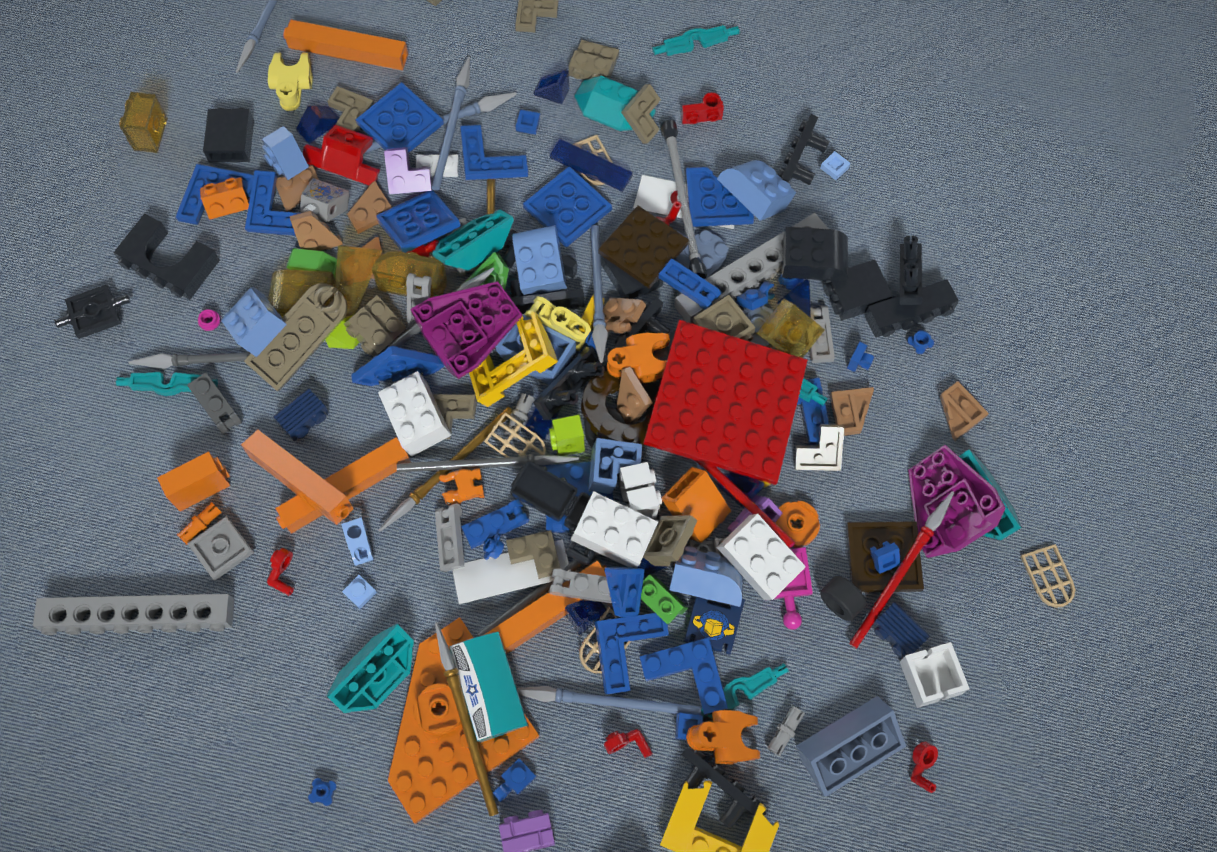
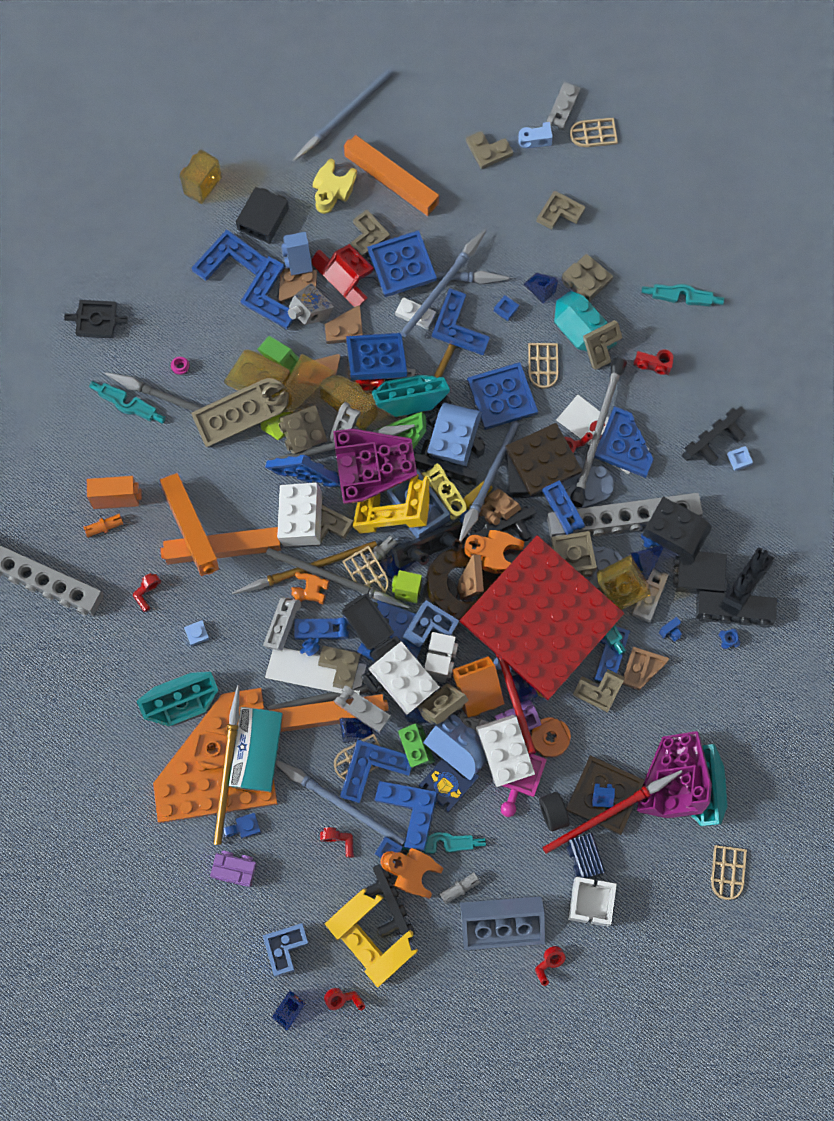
camera: 25 degrees right, 5 degrees up
(182, 278) = (174, 321): black arch -> none
(214, 403) = (154, 435): dark grey plate -> none
(220, 548) = (110, 552): light grey plate -> none
(224, 198) = (235, 268): orange bracket -> none
(253, 321) = (211, 385): medium blue brick -> none
(301, 415) = (215, 475): dark blue brick -> none
(313, 233) = (289, 330): medium nougat wing -> none
(316, 122) = (337, 233): clear blue slope -> none
(325, 798) = (104, 774): blue plate -> none
(358, 541) = (212, 594): light blue leg -> none
(402, 177) = (381, 312): brick -> none
(591, 165) = (539, 368): clear blue tile -> none
(625, 589) = (390, 726): blue wing -> none
(756, 298) = (613, 542): blue plate -> none
(758, 188) = (662, 450): medium blue brick -> none
(961, 410) = (730, 709): medium nougat wing -> none

